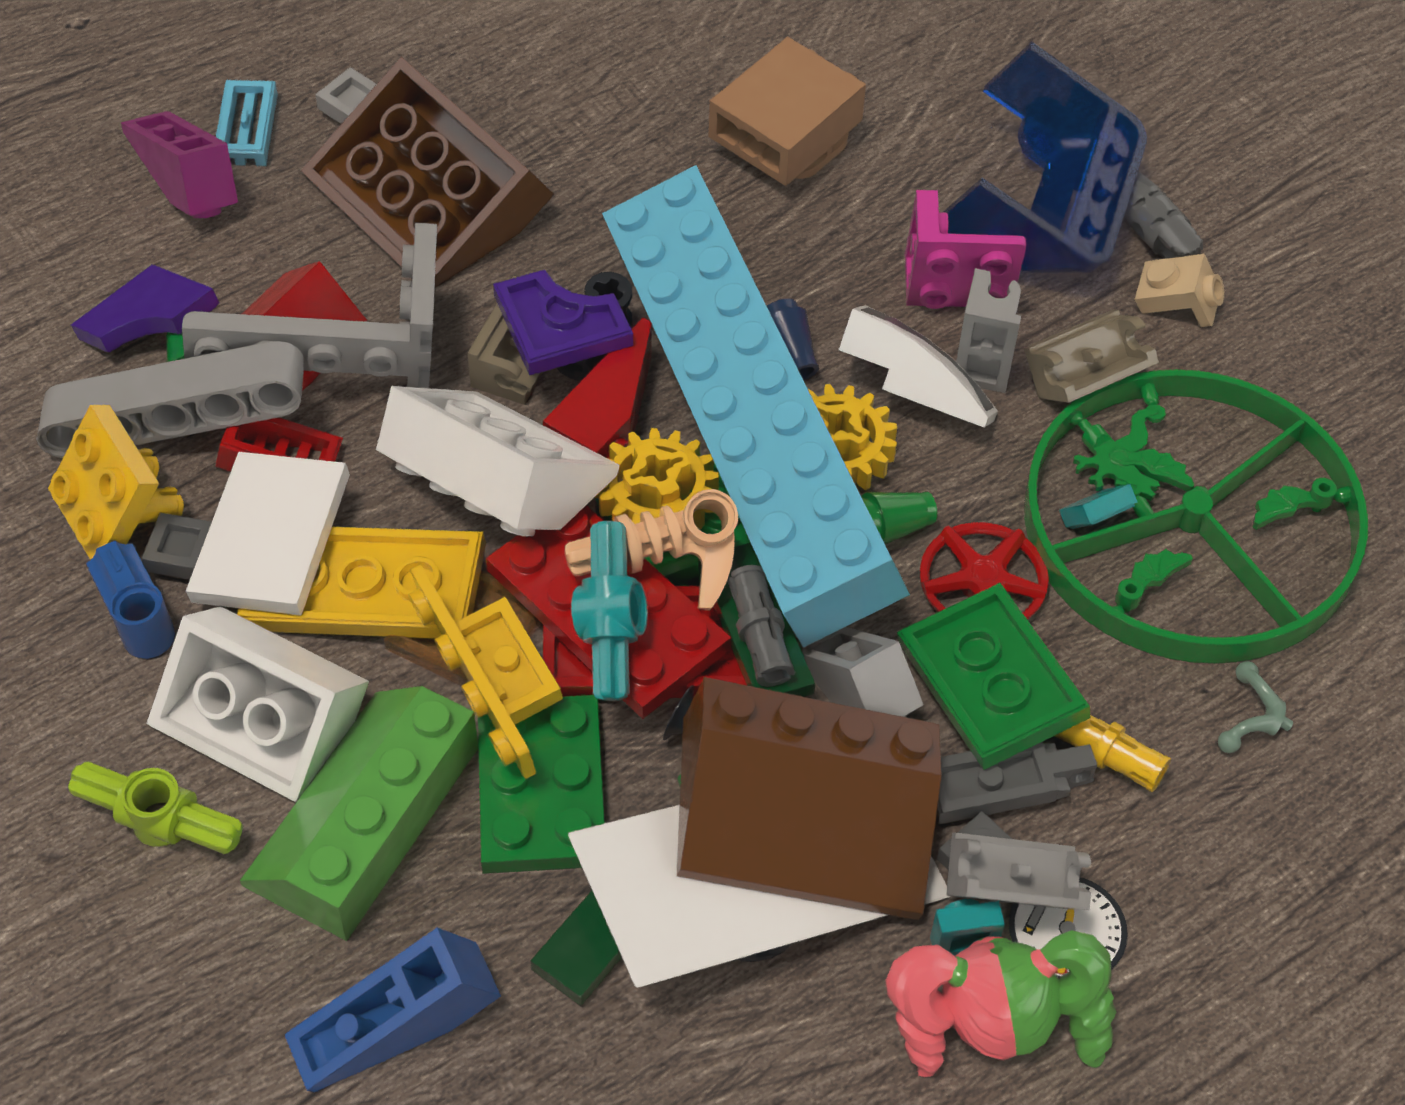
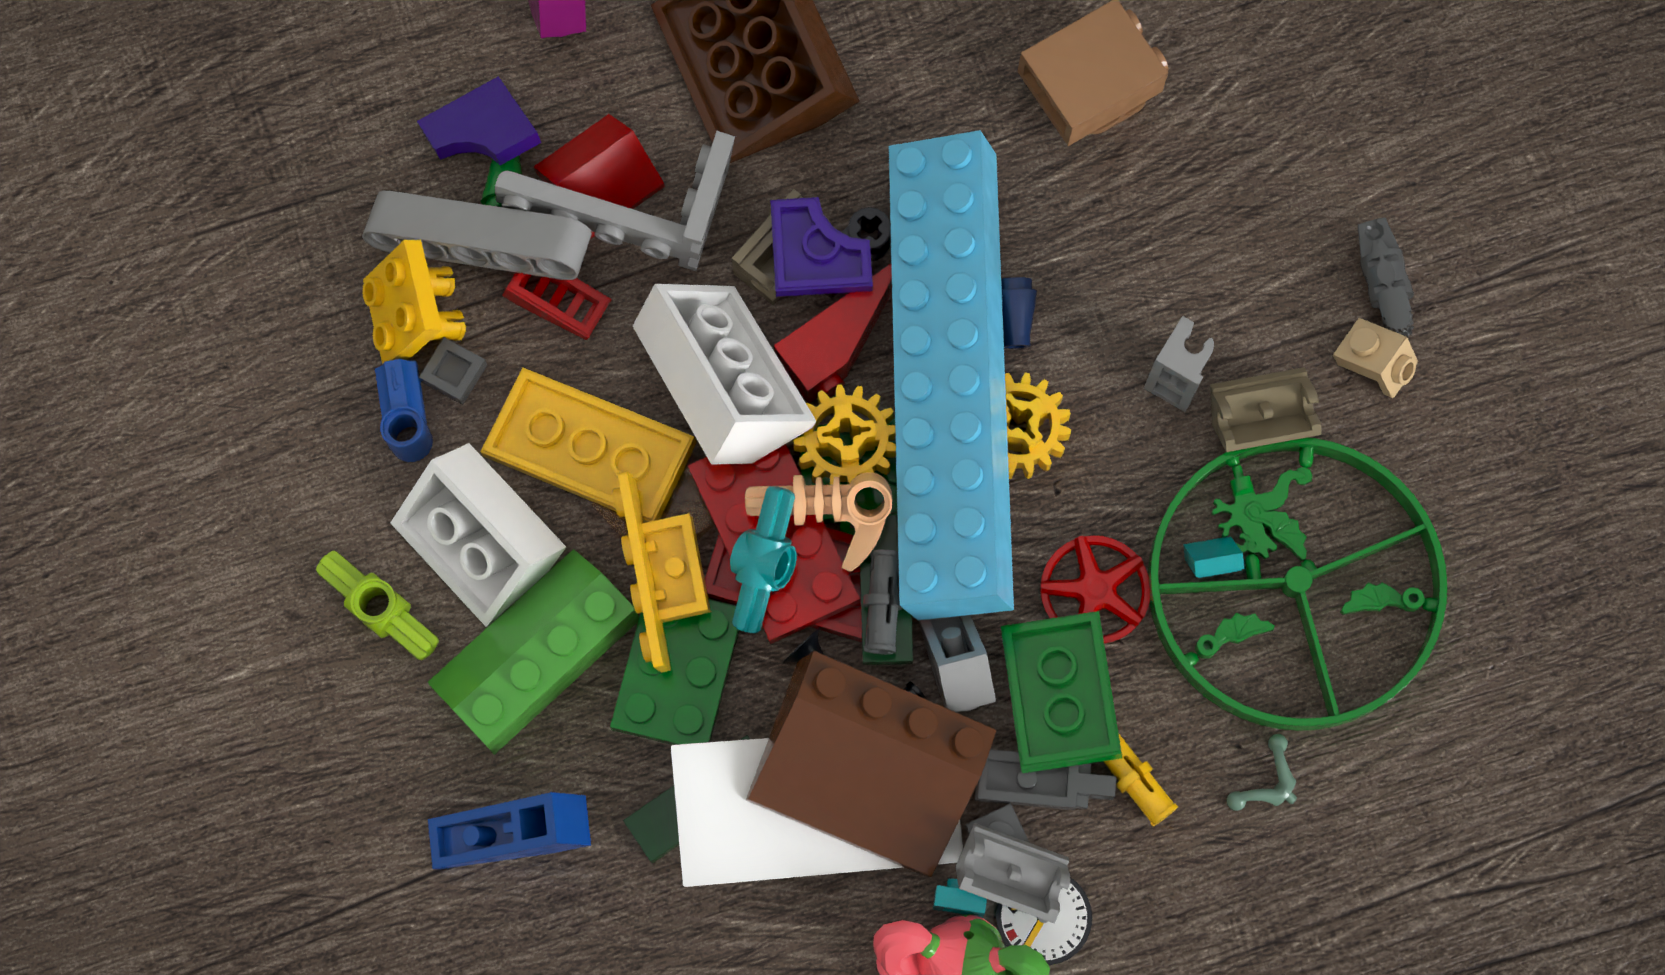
camera: 20 degrees right, 20 degrees up
(268, 533) = (525, 383): white tile -> none
(900, 512) = (1040, 512): green cone -> none
(916, 366) = (1110, 378): white slope -> none
(943, 264) = (1167, 290): dark pink bracket -> none
(1088, 161) = (1330, 231): clear blue windscreen -> none

